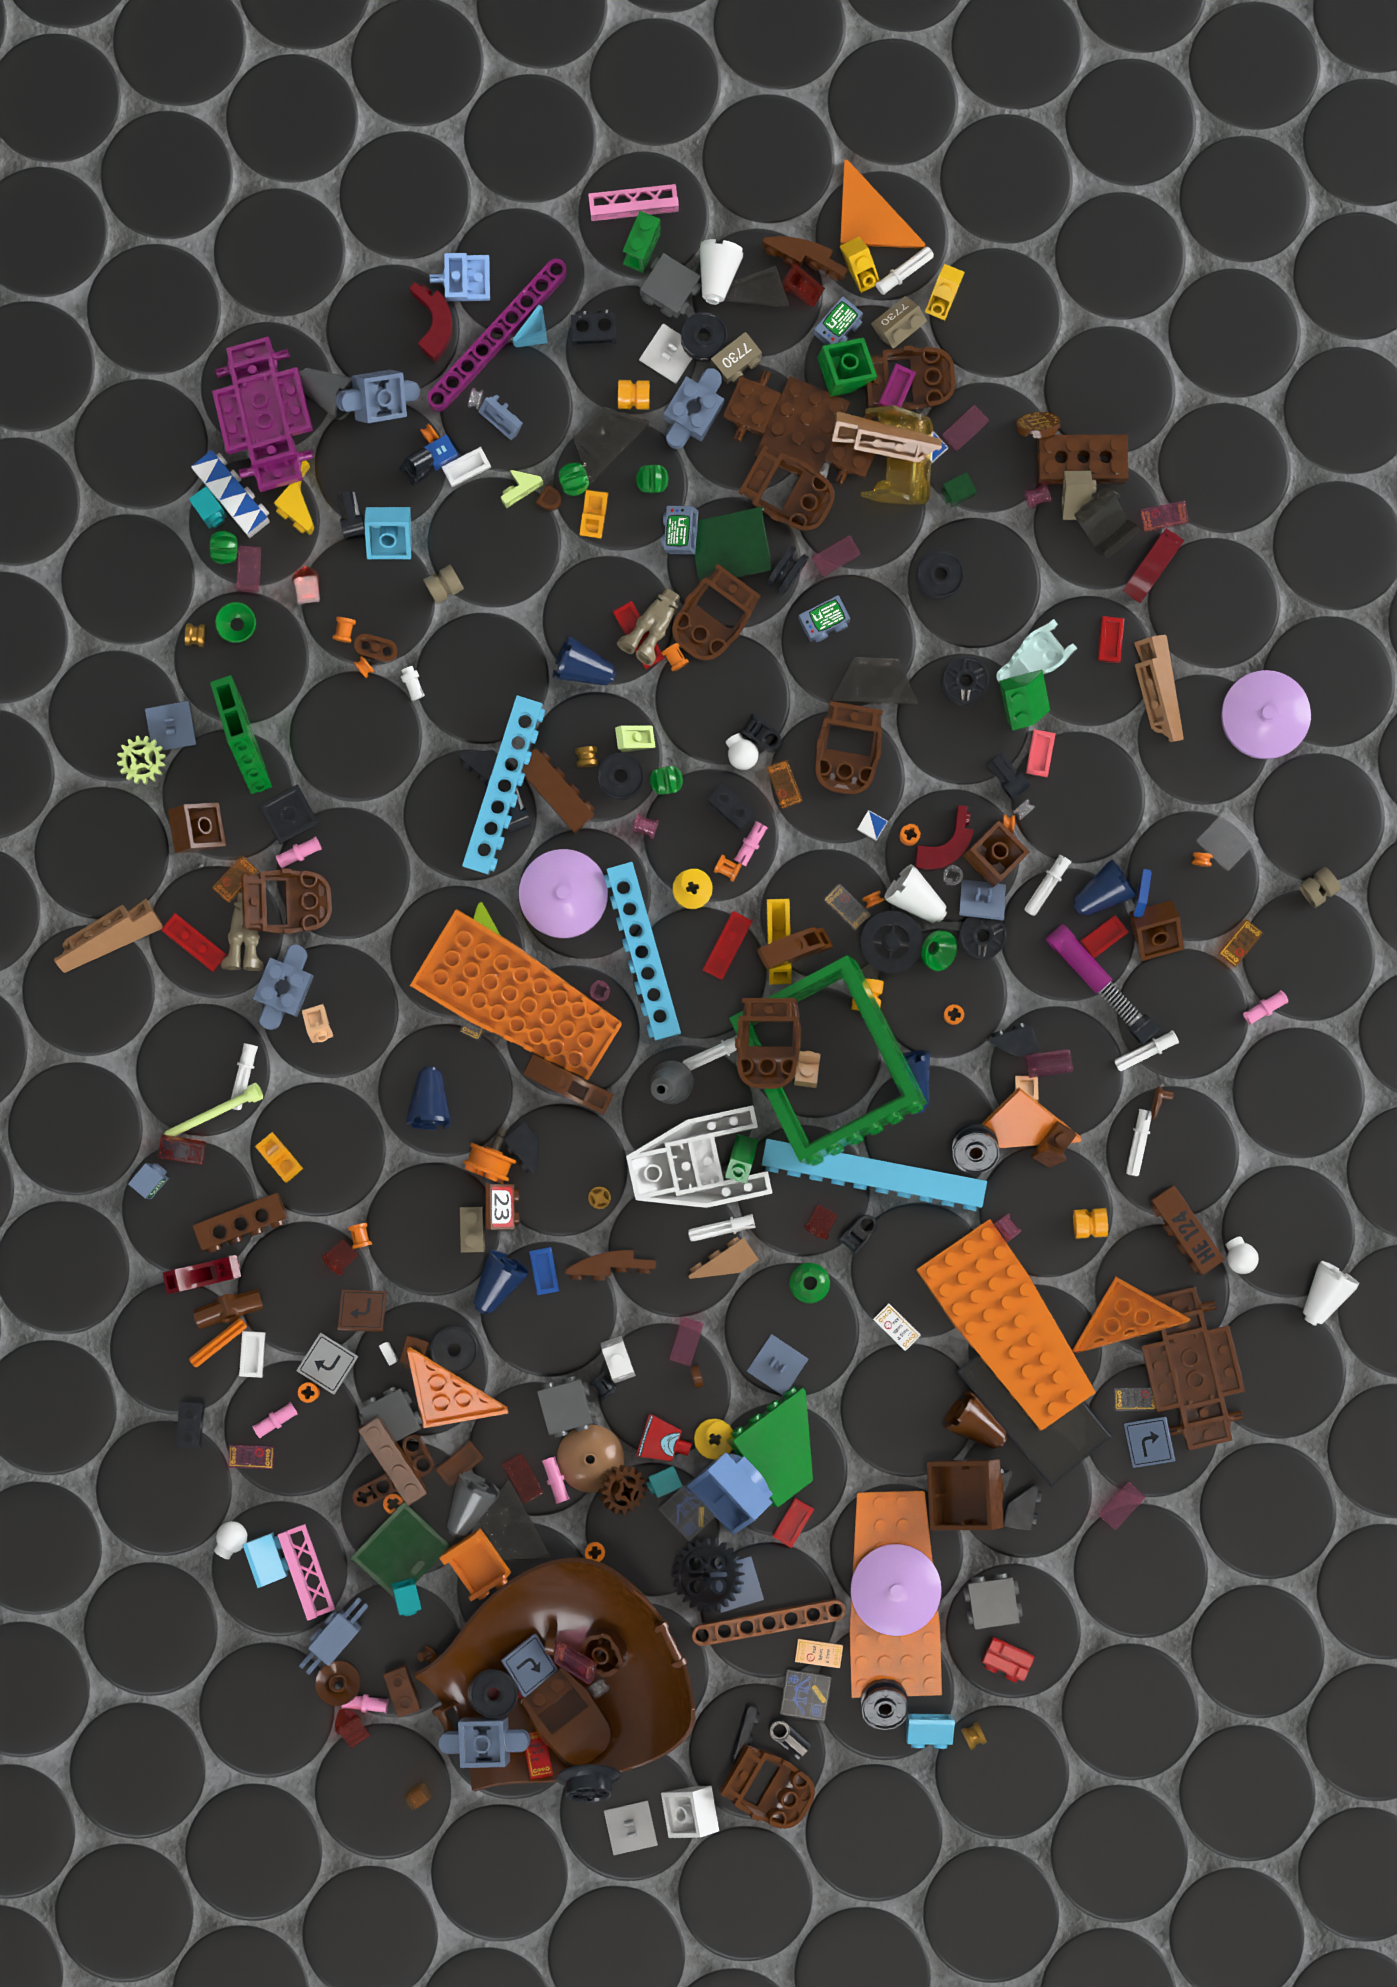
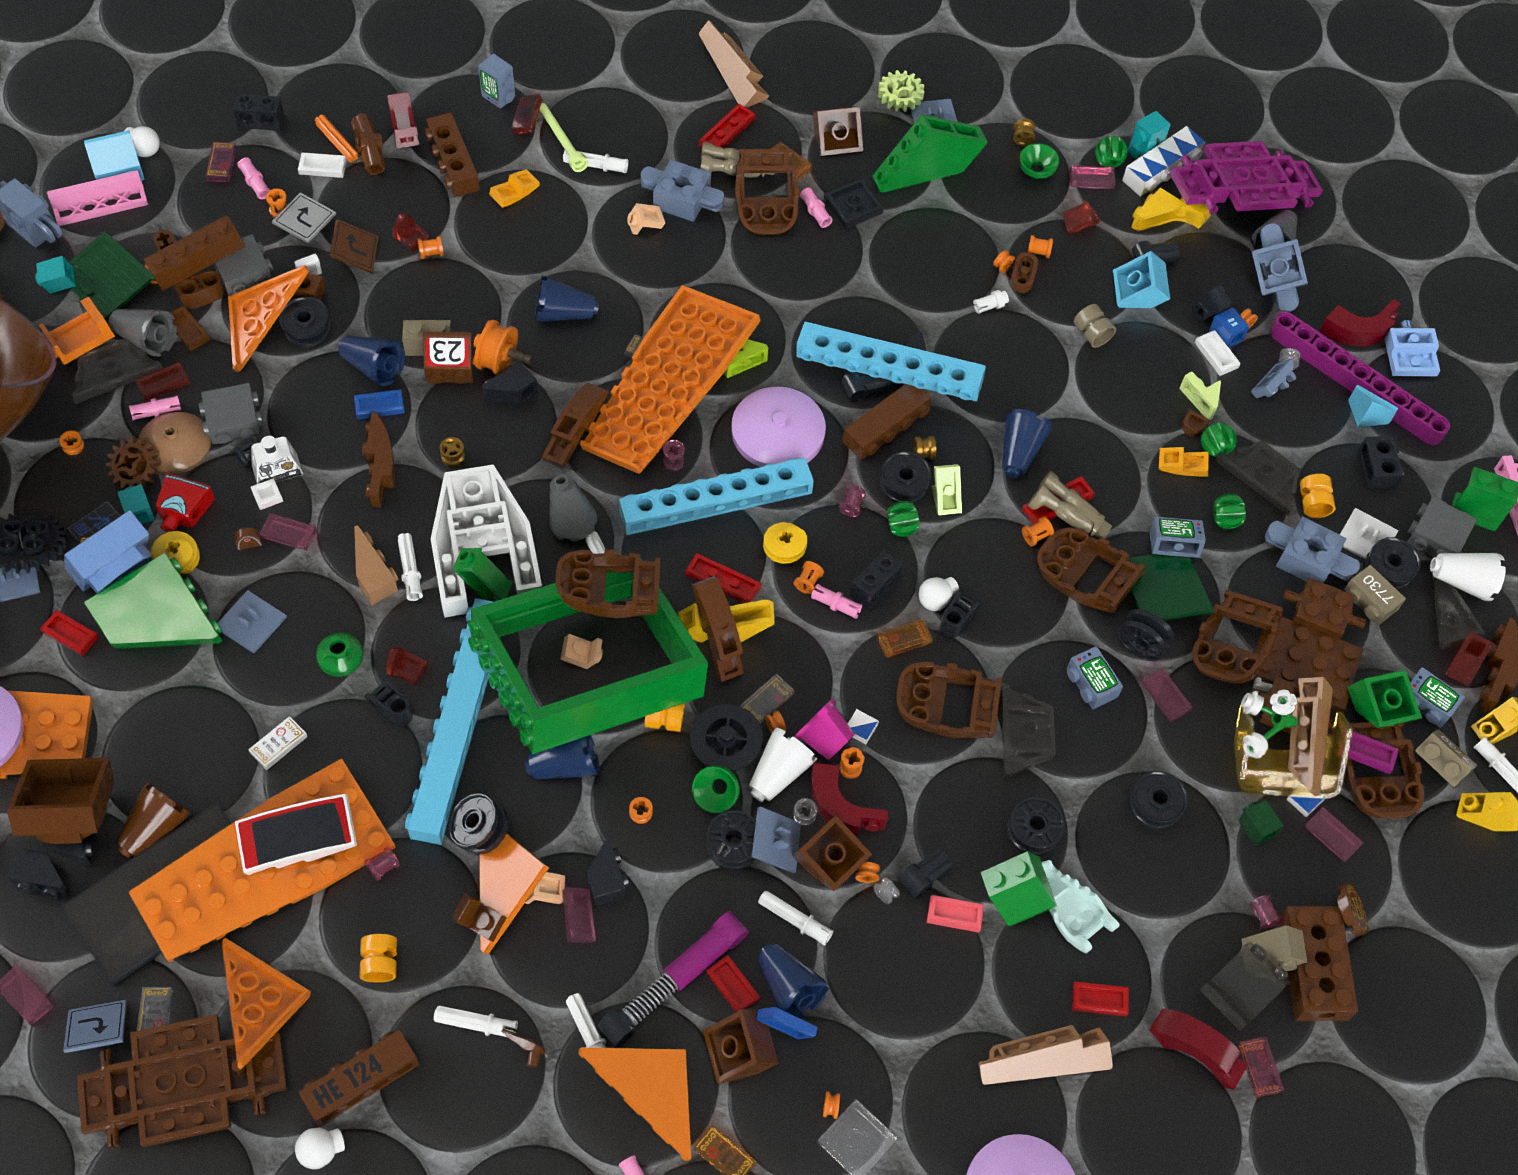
camera: 90 degrees right, 25 degrees down
(645, 1365) = (266, 494): none -> white tile
(881, 465) = (1282, 705): none -> white plant
(882, 857) = (826, 731): none -> dark pink container
(992, 1297) = (295, 833): none -> slope
(1189, 1000) = (652, 1085): none -> orange tile

